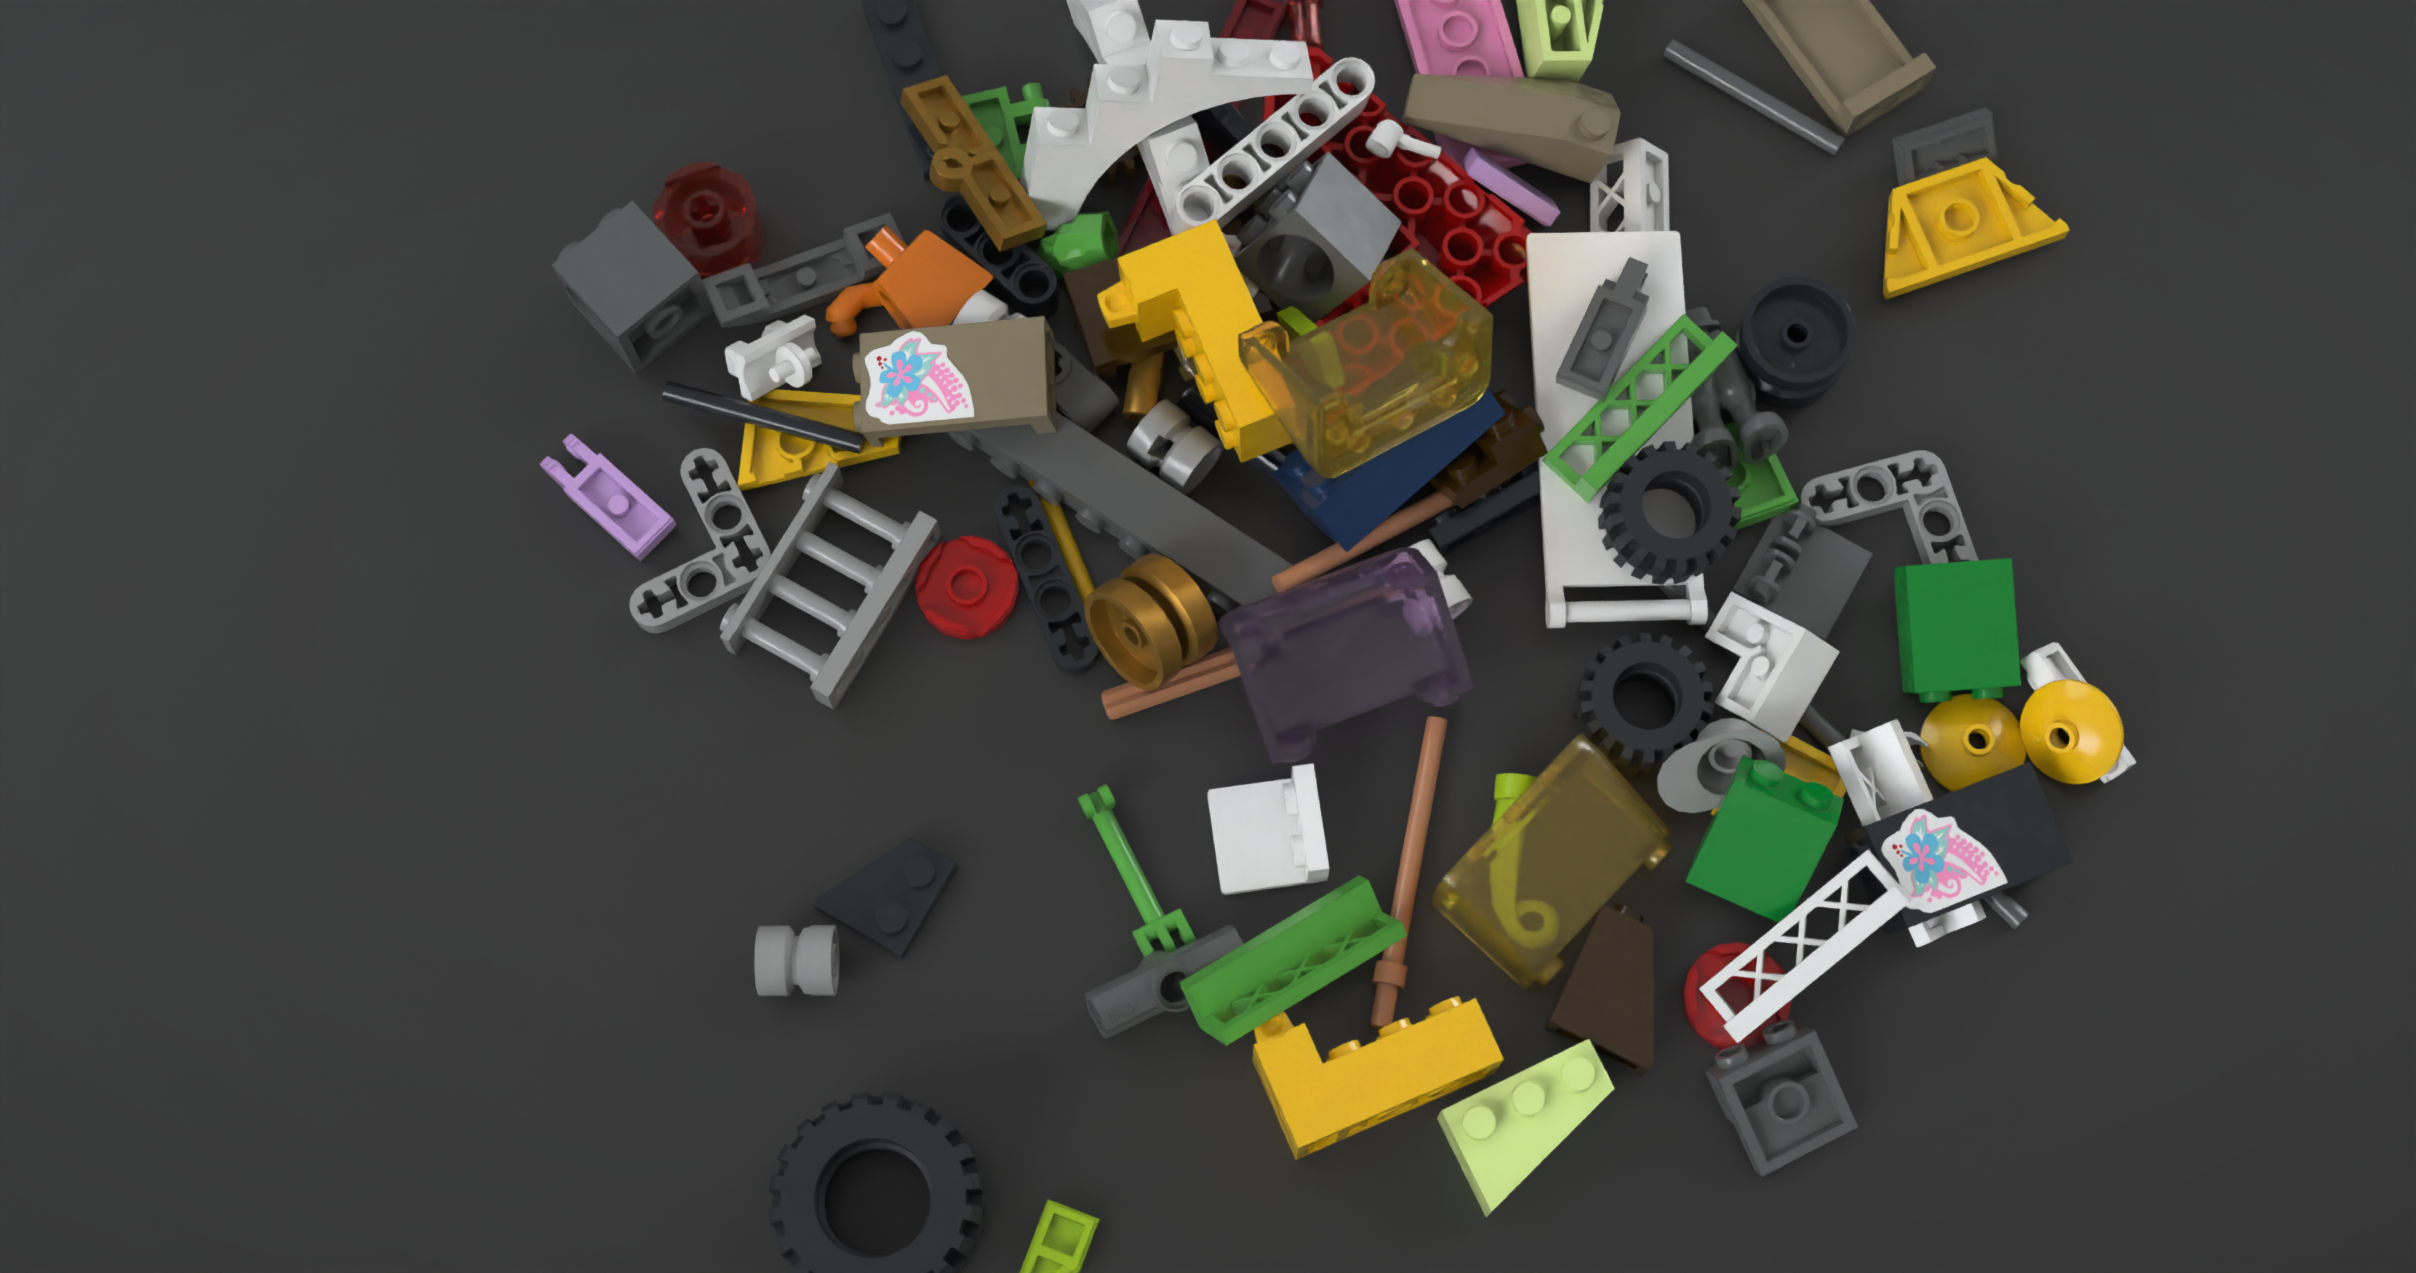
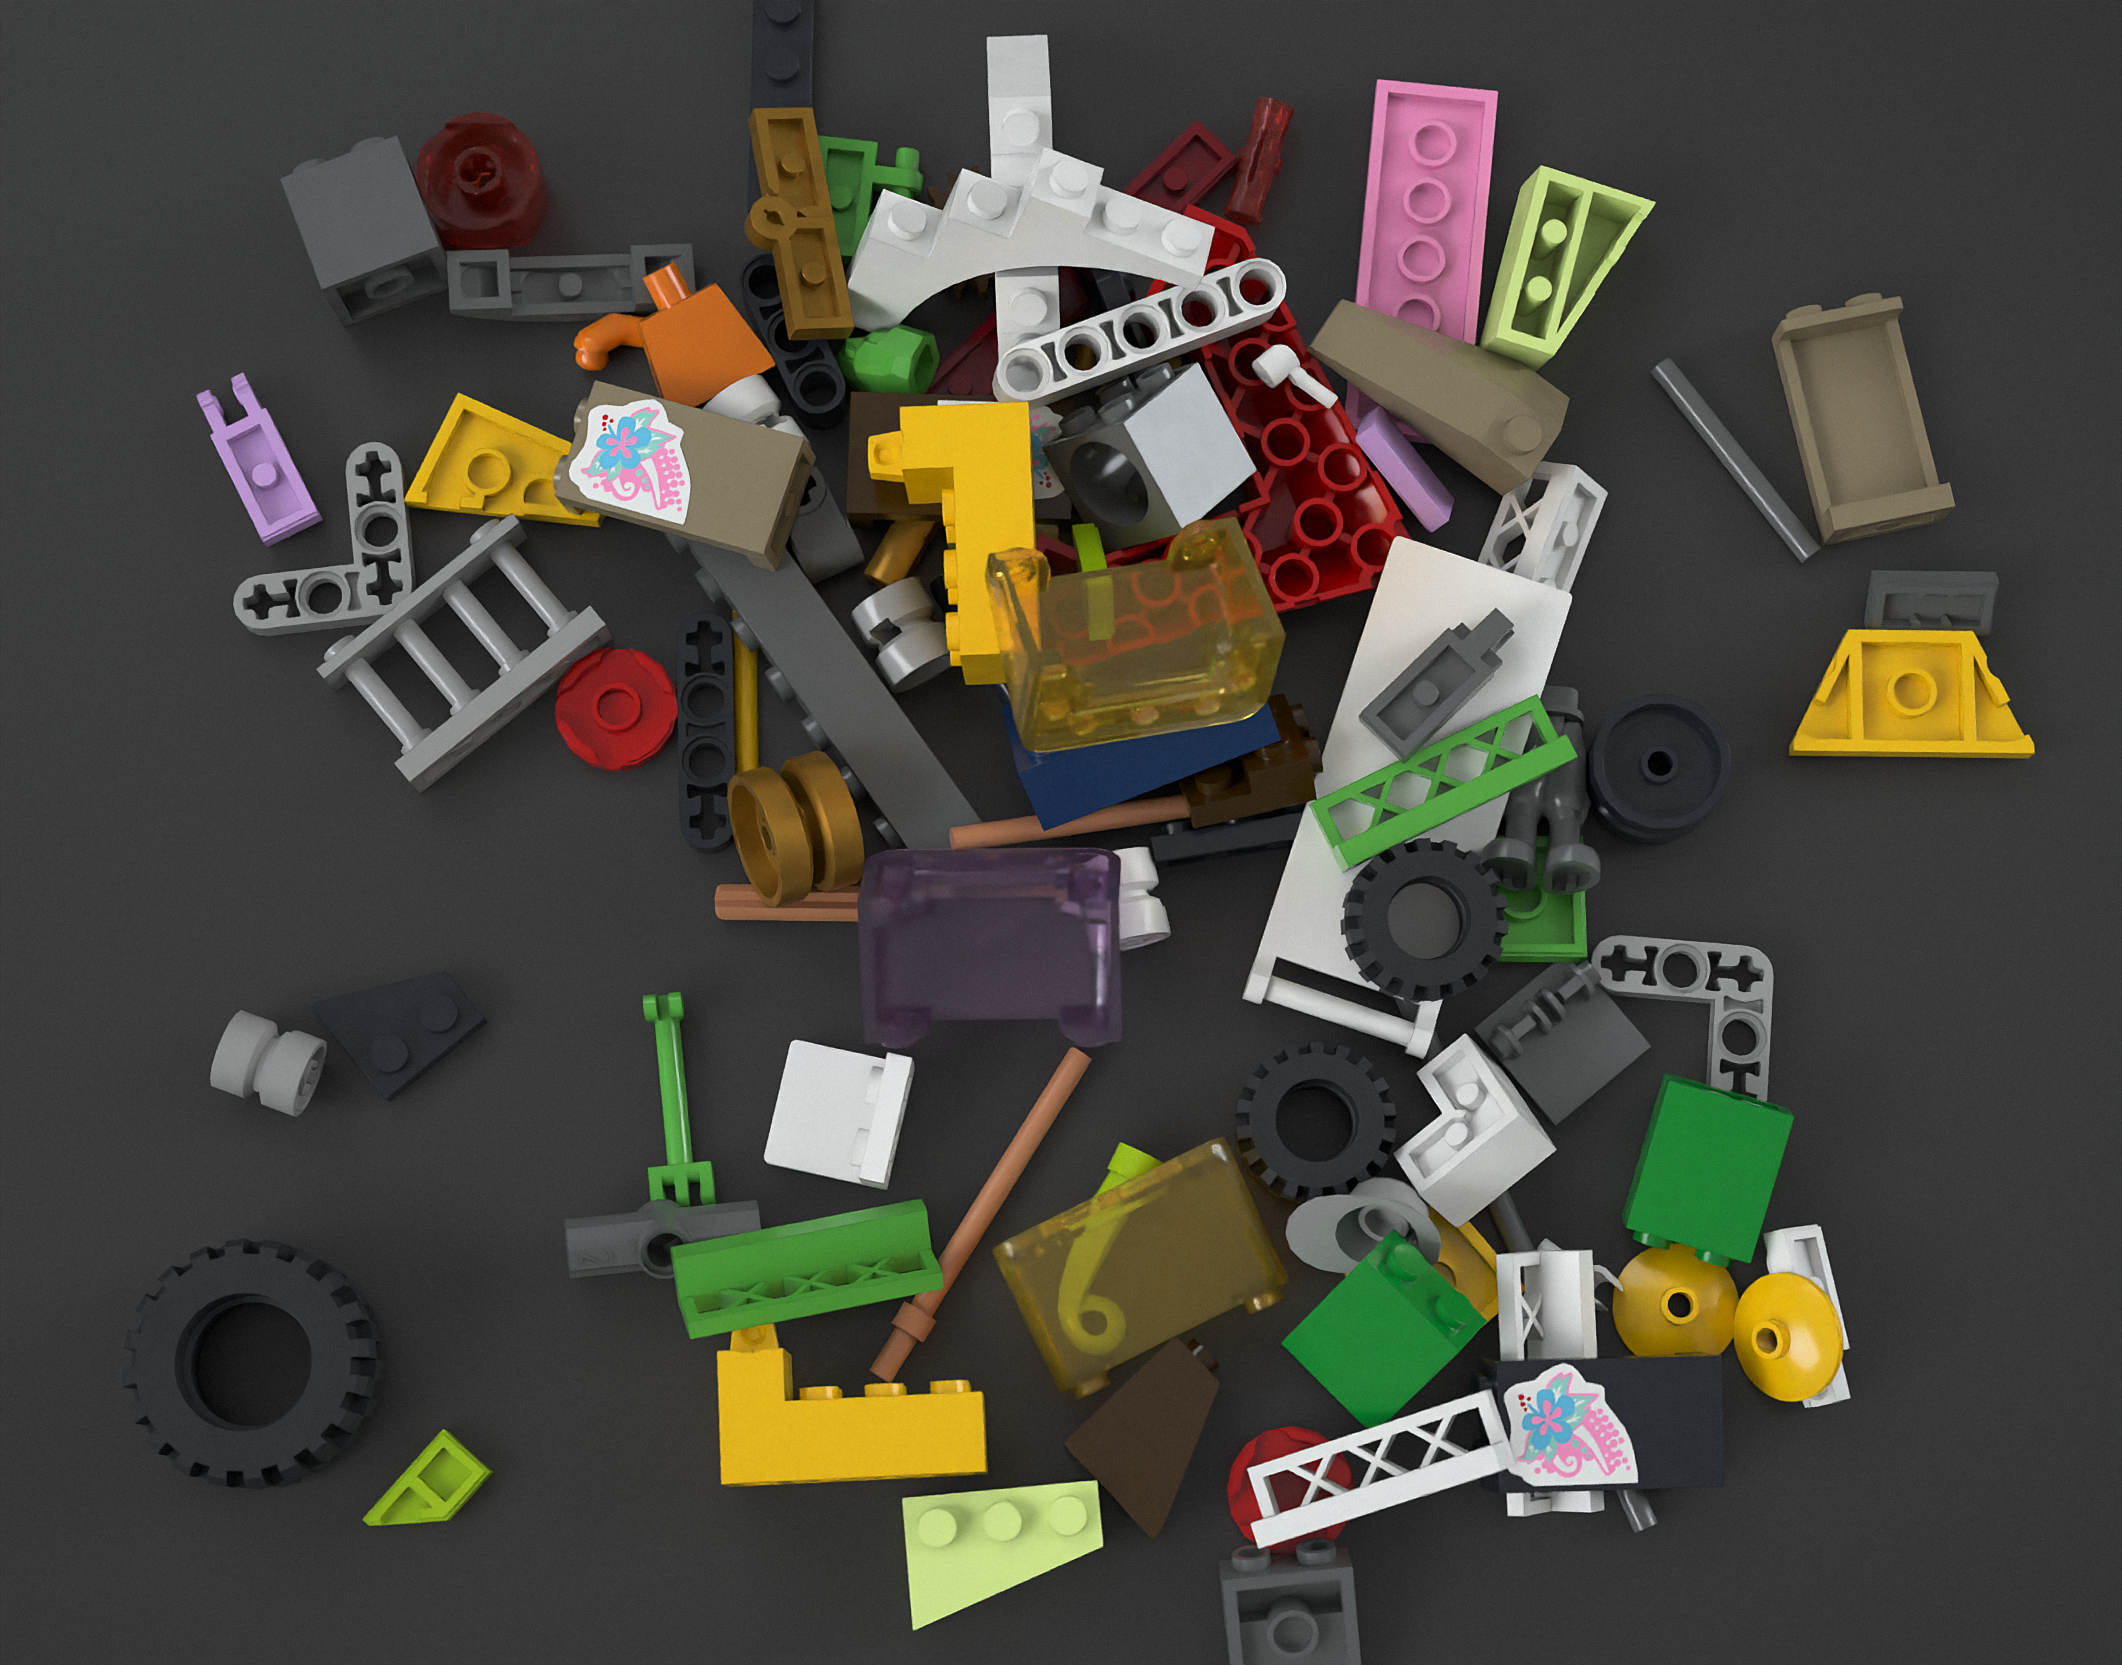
camera: 20 degrees right, 5 degrees up
(763, 417) = (458, 433): black bar -> none
(778, 357) = (498, 370): white hips -> none

